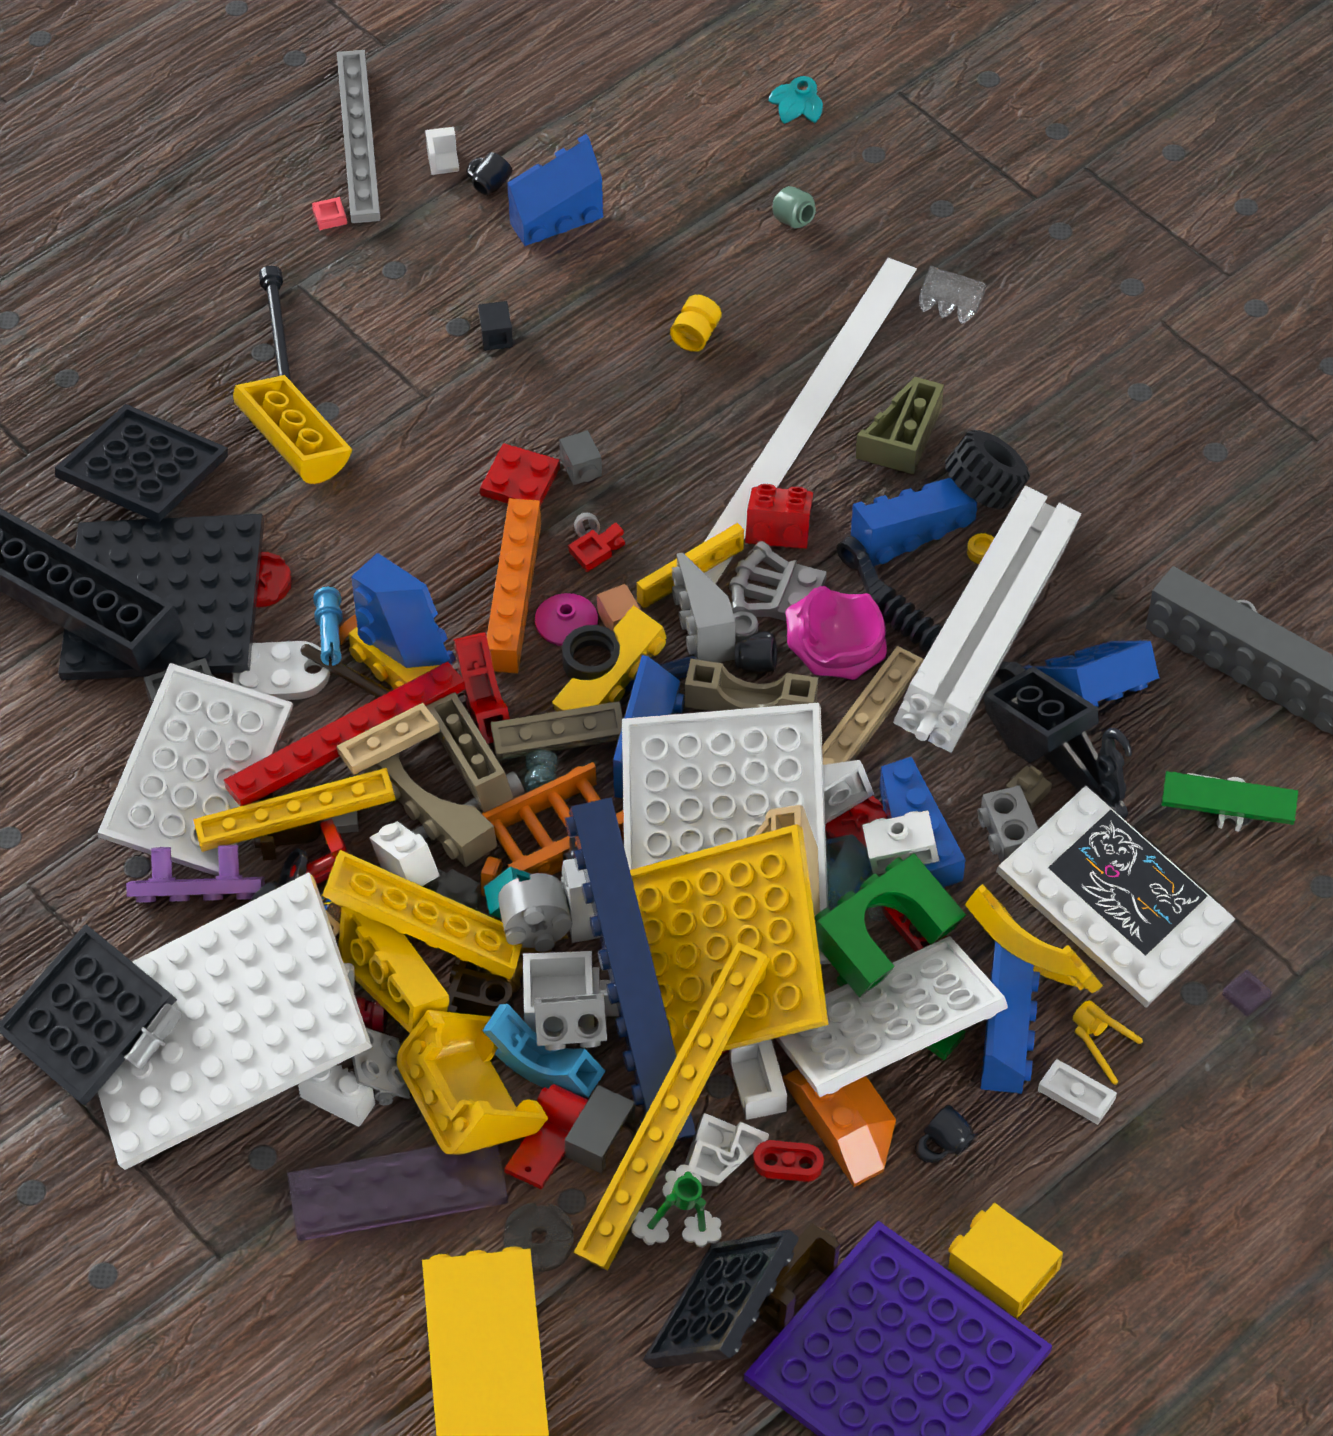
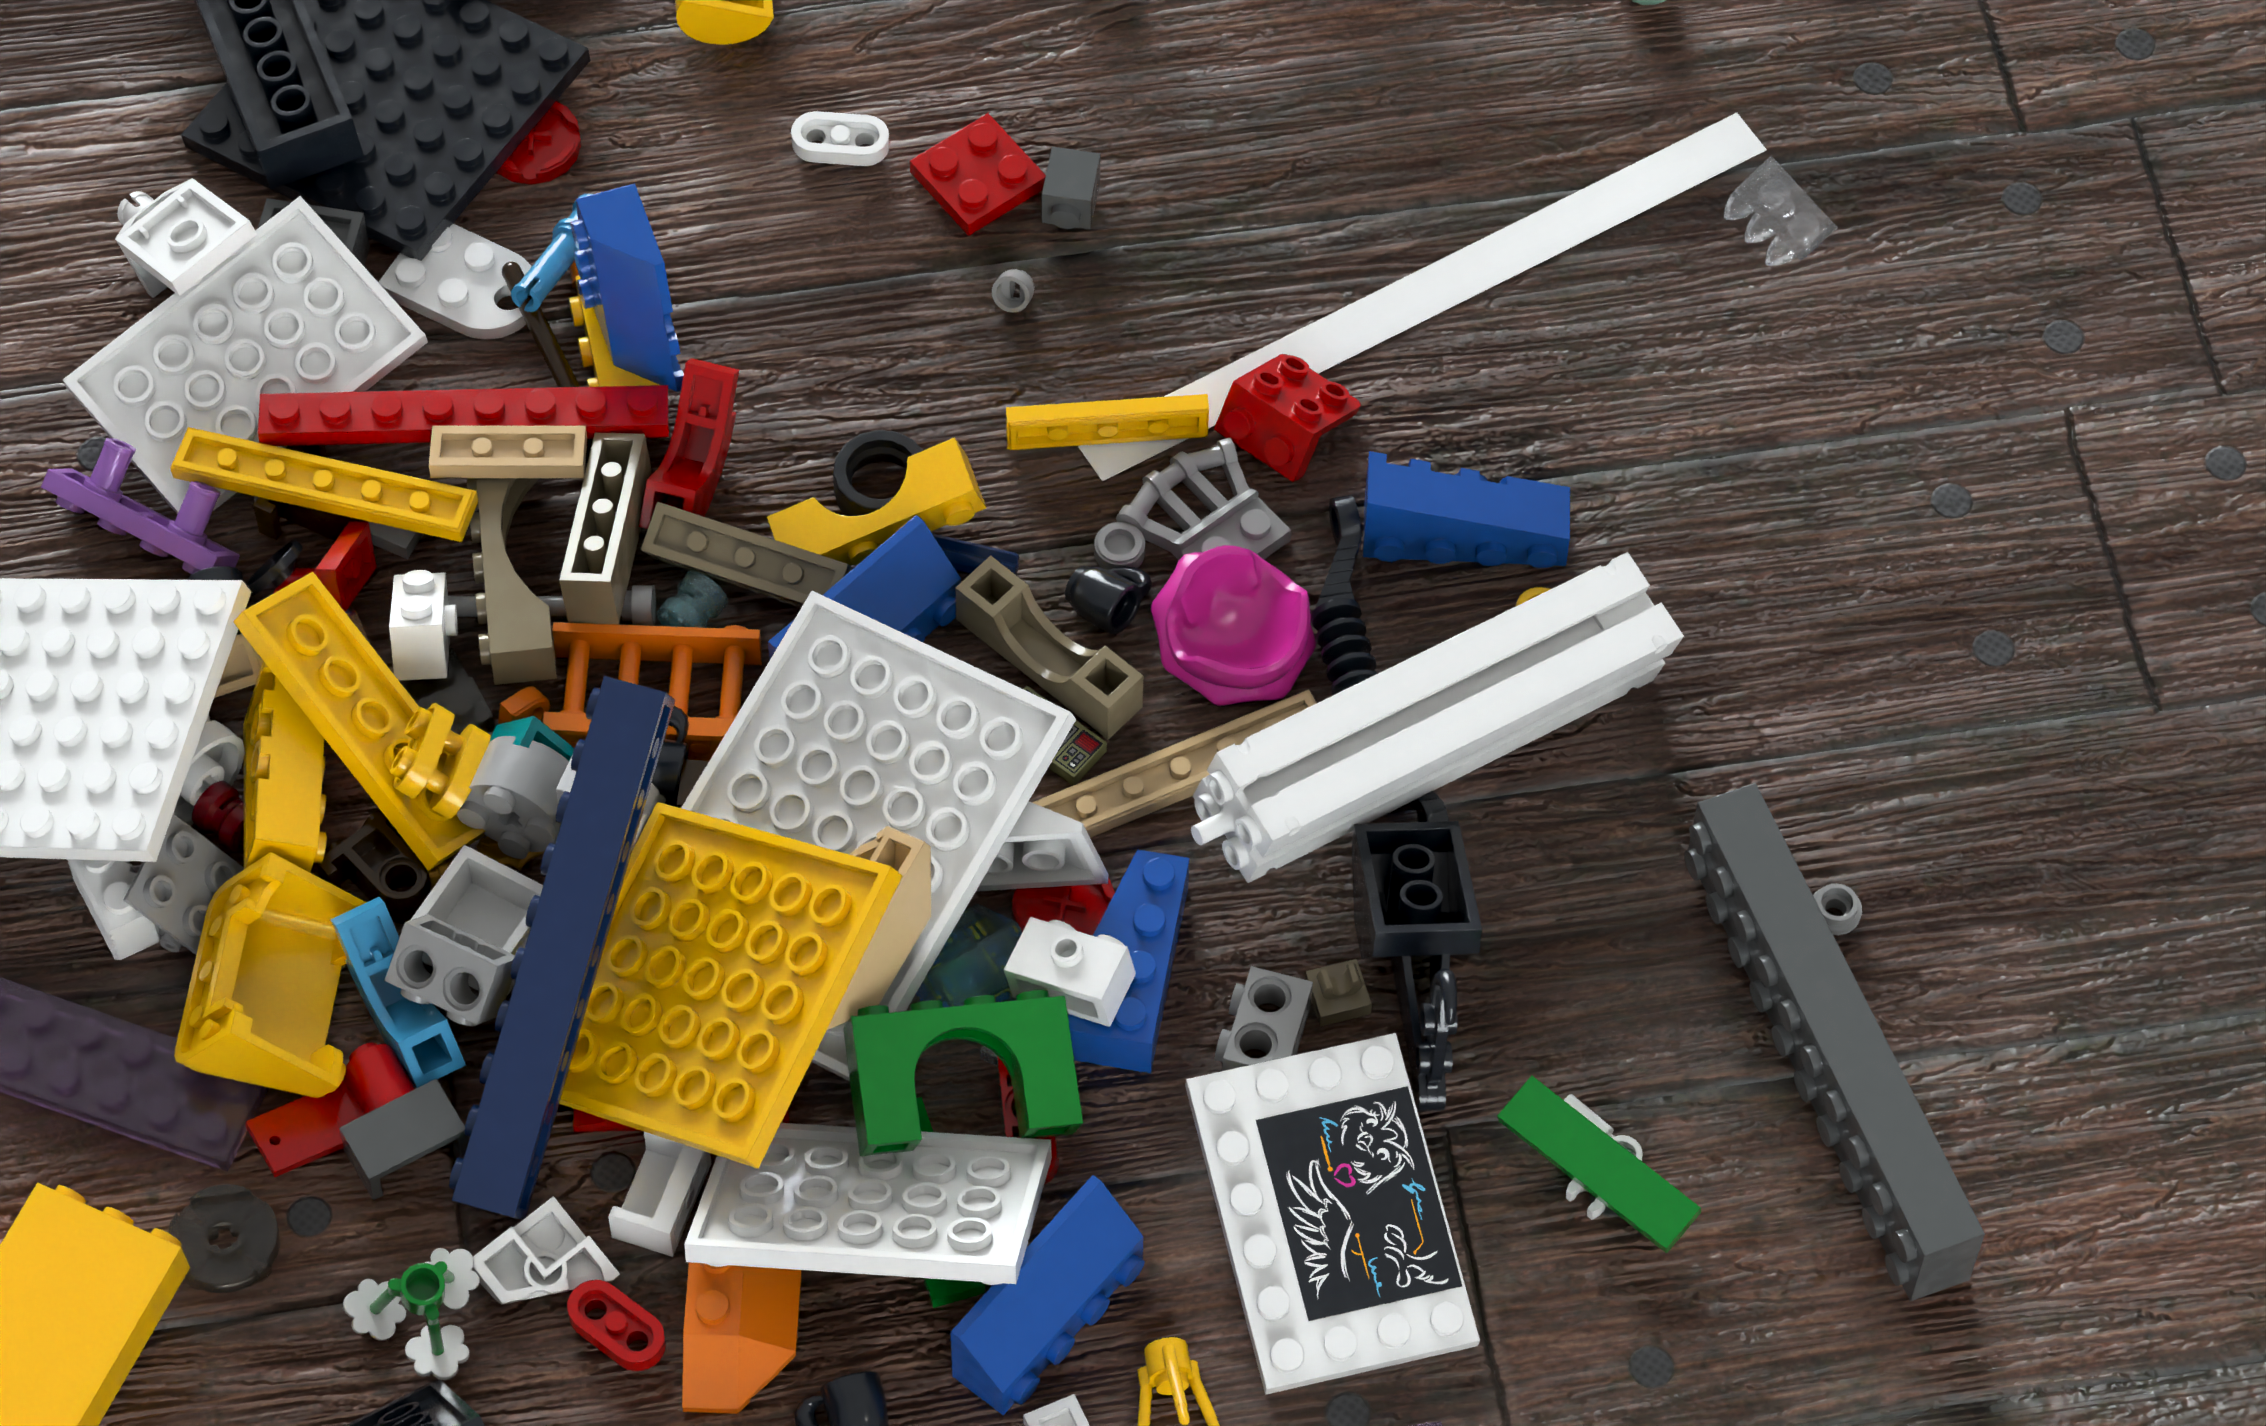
camera: 30 degrees right, 5 degrees up
(110, 720) = (179, 236): none -> white plate
(432, 496) = (841, 138): none -> white plate
(480, 914) = (417, 761): none -> yellow brick
(513, 584) = (847, 324): orange brick -> none
(555, 625) = (915, 415): dark pink dish -> none
(595, 549) = (996, 328): red plate -> none
(614, 605) = (969, 424): nougat panel -> none
(671, 1106) = (496, 1160): yellow plate -> none
(695, 323) = (1371, 76): yellow wheel -> none
(704, 613) = (1060, 511): light grey slope -> none
(904, 428) = (1553, 378): olive wedge -> none
(987, 469) = (1614, 498): black tyre -> none
(1051, 962) = (1142, 1210): yellow wedge -> none
(1104, 669) = (1552, 882): blue wedge -> none

